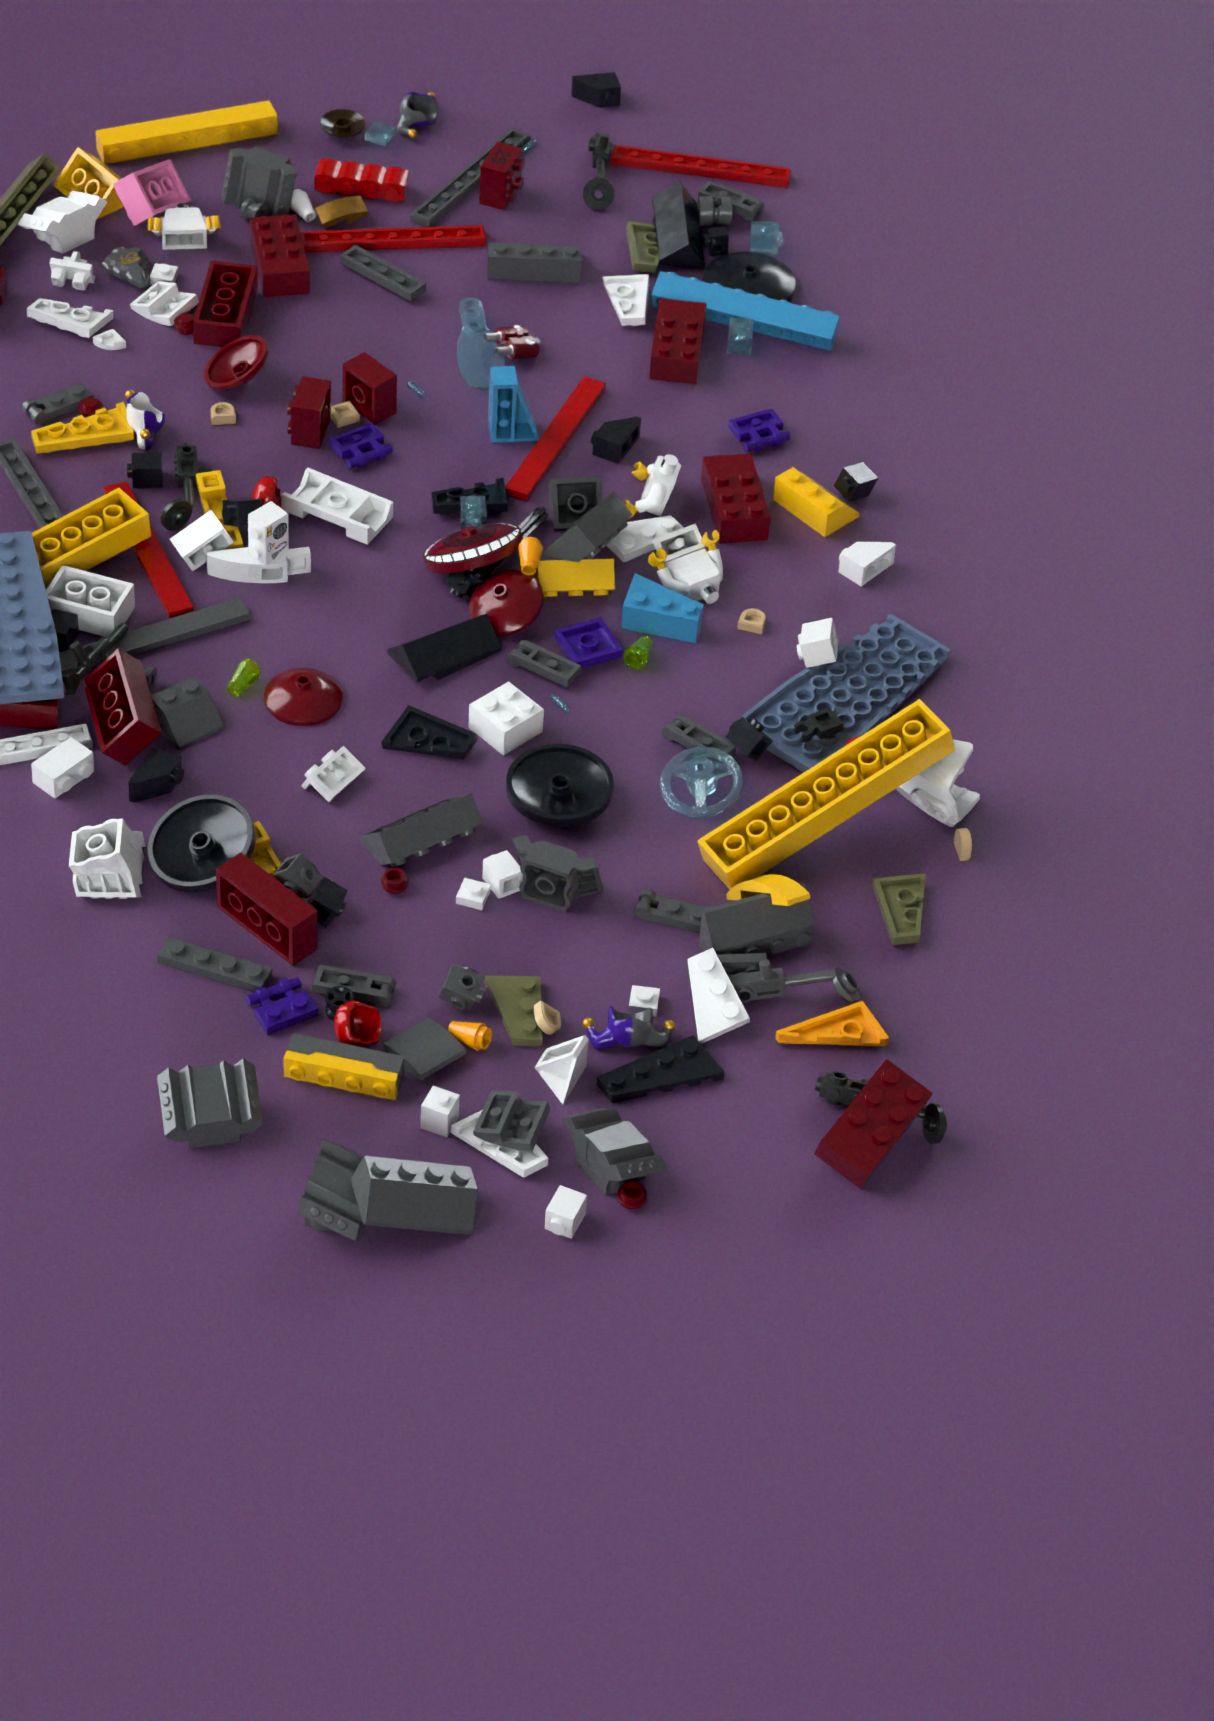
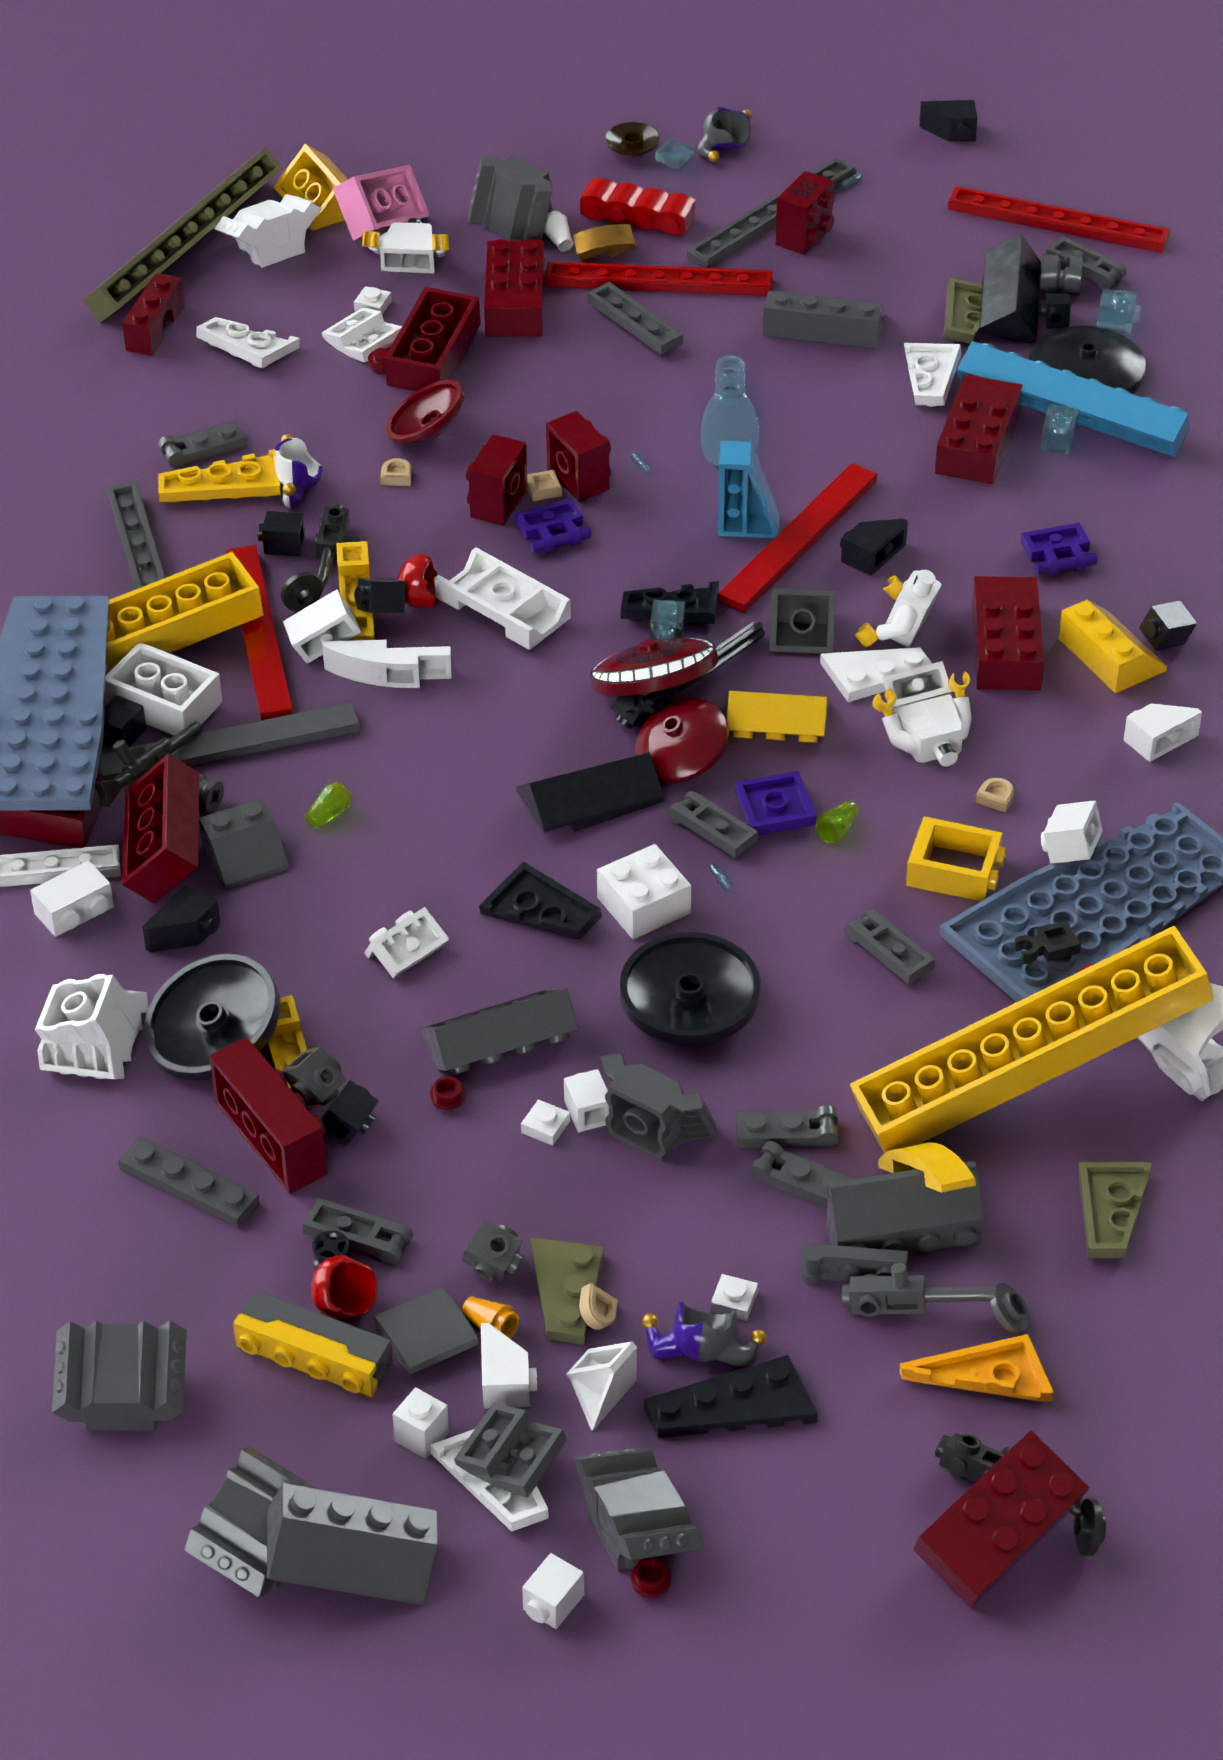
camera: 15 degrees right, 0 degrees up
(72, 268) = (263, 284): white hips -> none
(88, 406) = (237, 449): dark red plate -> none
(109, 340) = (286, 373): white tile -> none
(128, 266) = (332, 286): dark grey rock -> none
(186, 132) = (445, 136): yellow brick -> none
(252, 209) = (497, 229): dark grey wheel -> none
(268, 533) = (396, 625): white brick -> none
(283, 1012) = (262, 1255): dark purple plate -> none
(303, 697) = (398, 837): dark red dish -> none
(490, 1067) = (505, 1370): none -> white slope
(513, 342) = (773, 414): dark red piece -> none
(529, 554) = (719, 680): light orange cone -> none
(591, 531) = (806, 658): dark grey slope -> none
(601, 149) = (937, 187): pearl dark grey piece -> none
(657, 878) = (788, 1128): none -> dark grey plate
(661, 611) = (877, 770): dark azure wedge -> none
(701, 780) = (879, 1000): clear light blue piece -> none
(714, 997) = (824, 1306): white wing -> none
(734, 686) = (950, 878): none -> yellow window
(749, 737) = (953, 950): black brick -> none
(963, 843) = (1213, 1126): tan tile -> none

